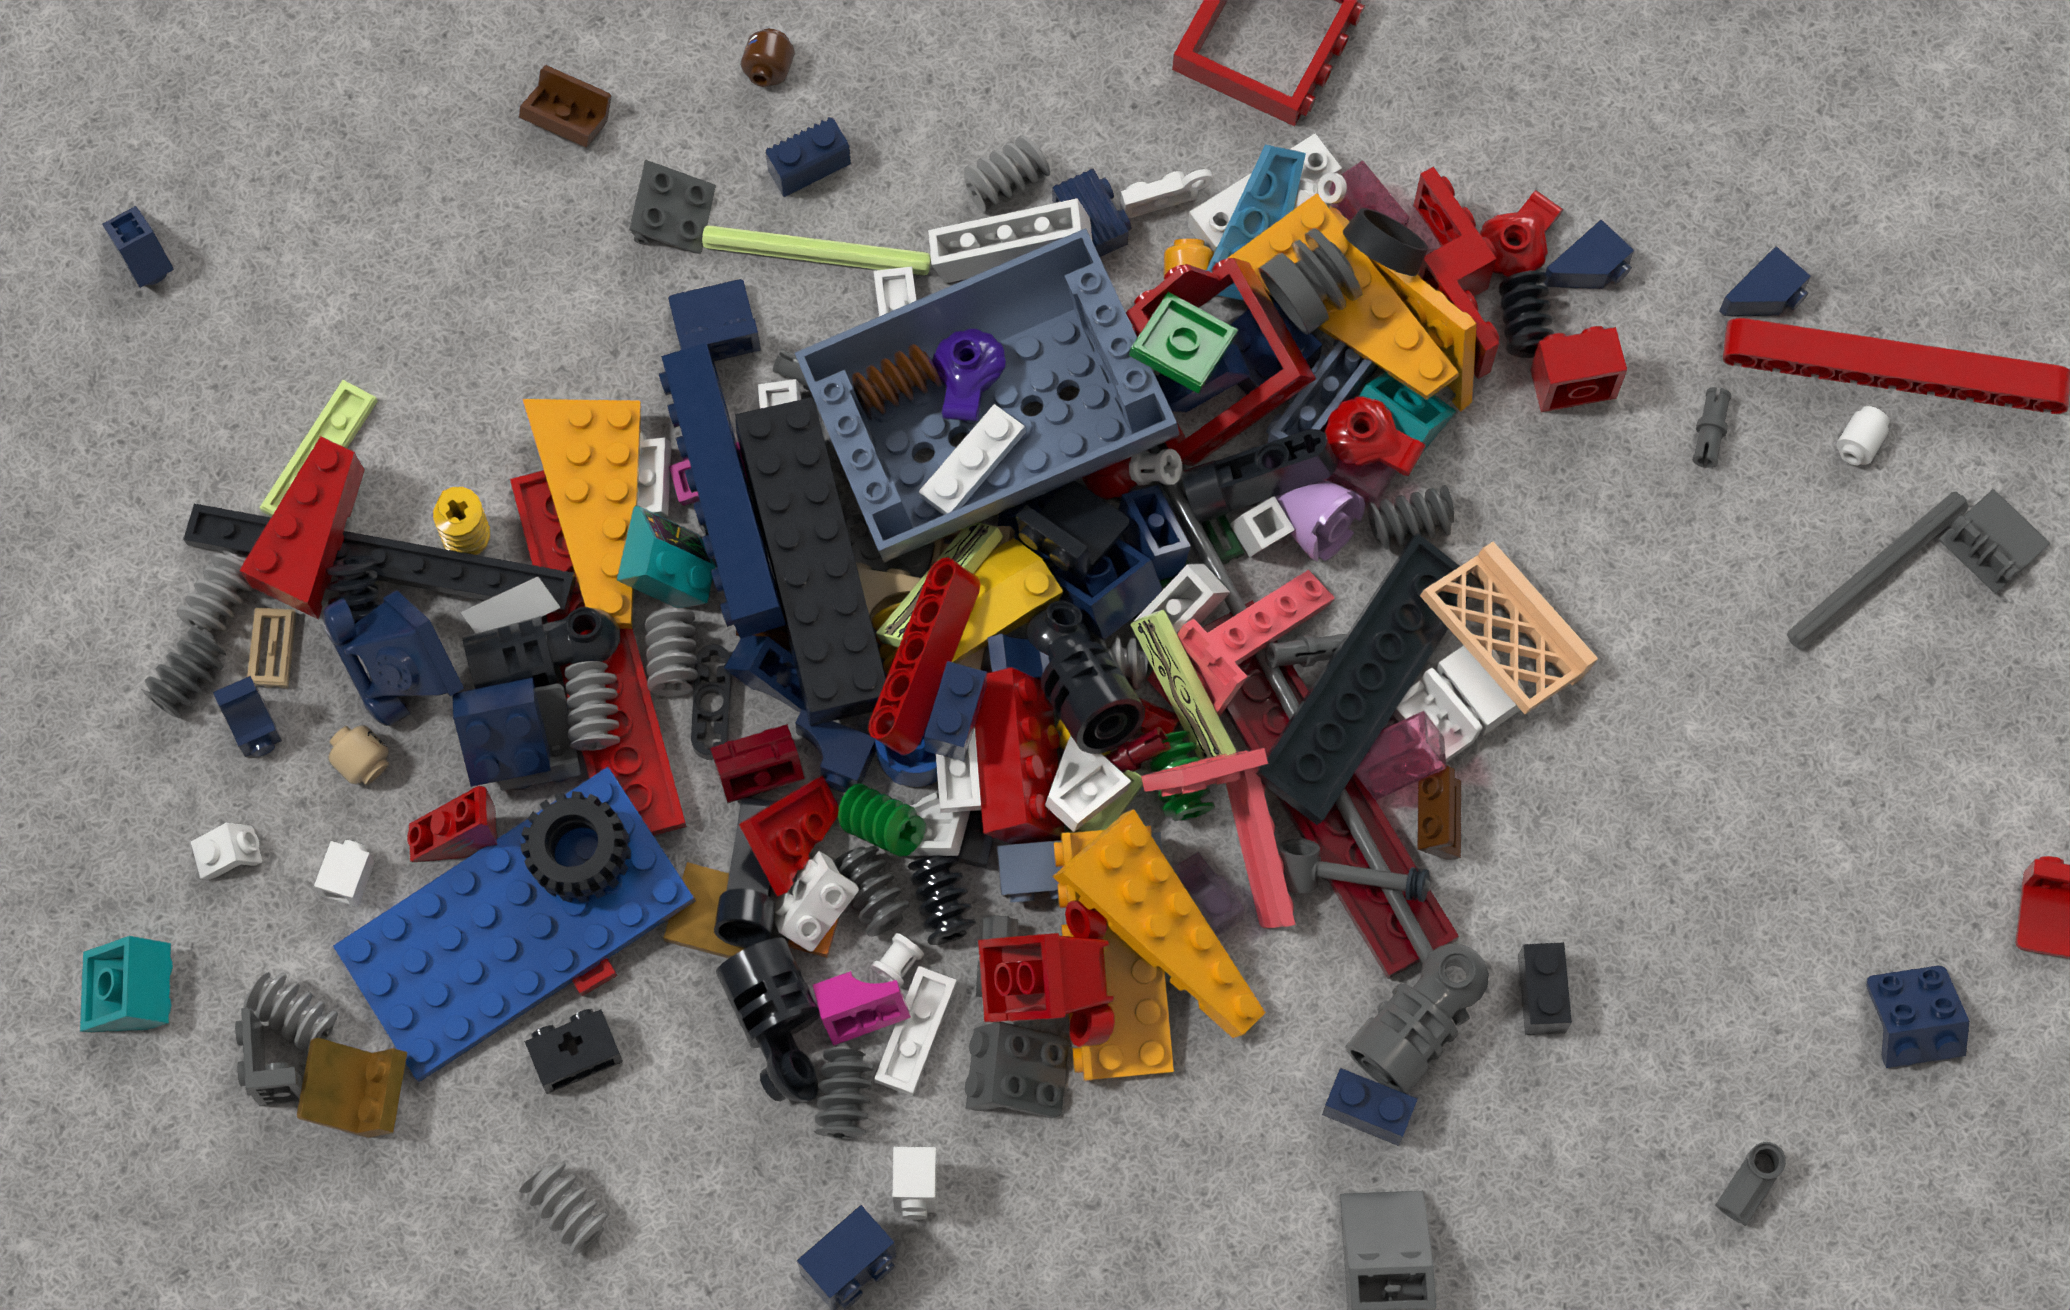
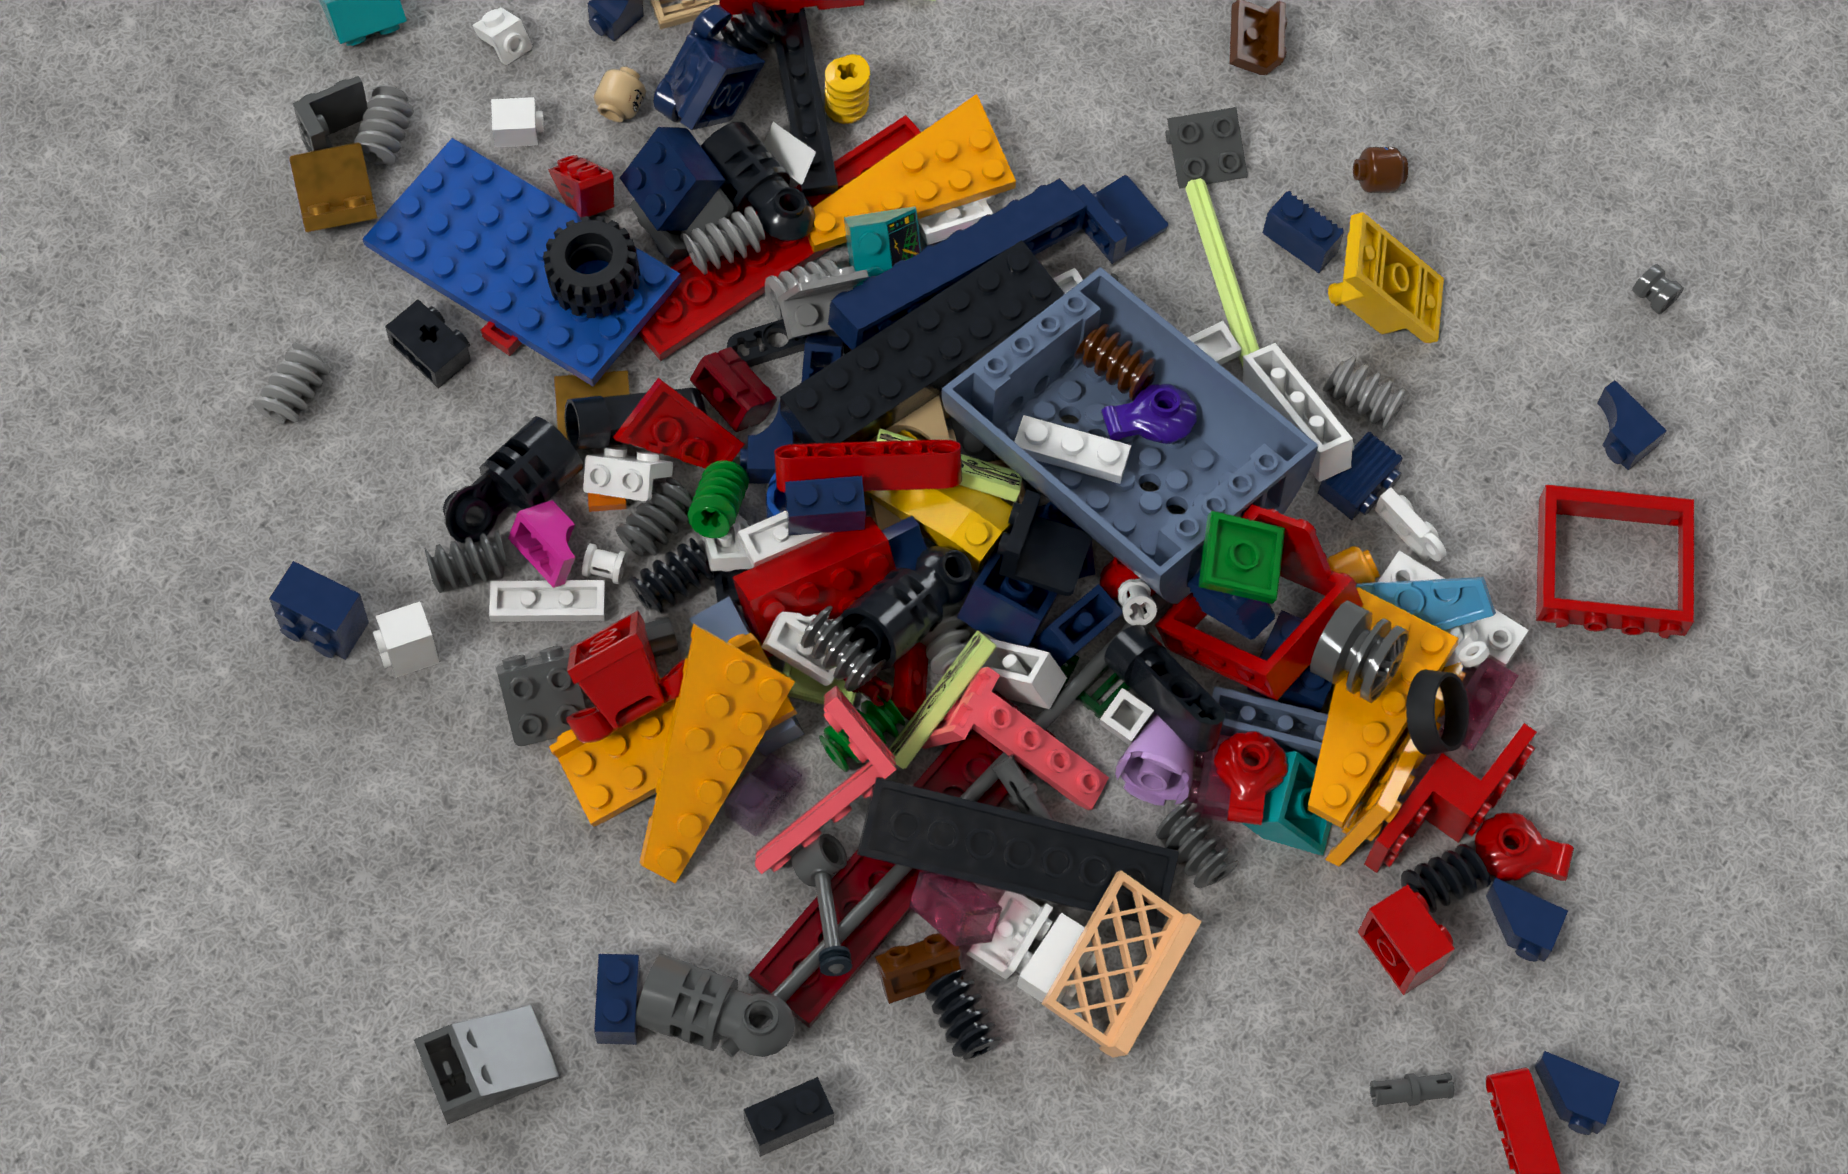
camera: 65 degrees right, 5 degrees down
(708, 642) = (808, 302): none -> light grey bracket
(906, 104) = (1388, 283): none -> yellow brick
(1112, 753) = (840, 650): none -> dark grey piece
(1504, 791) = (960, 1016): none -> black piece

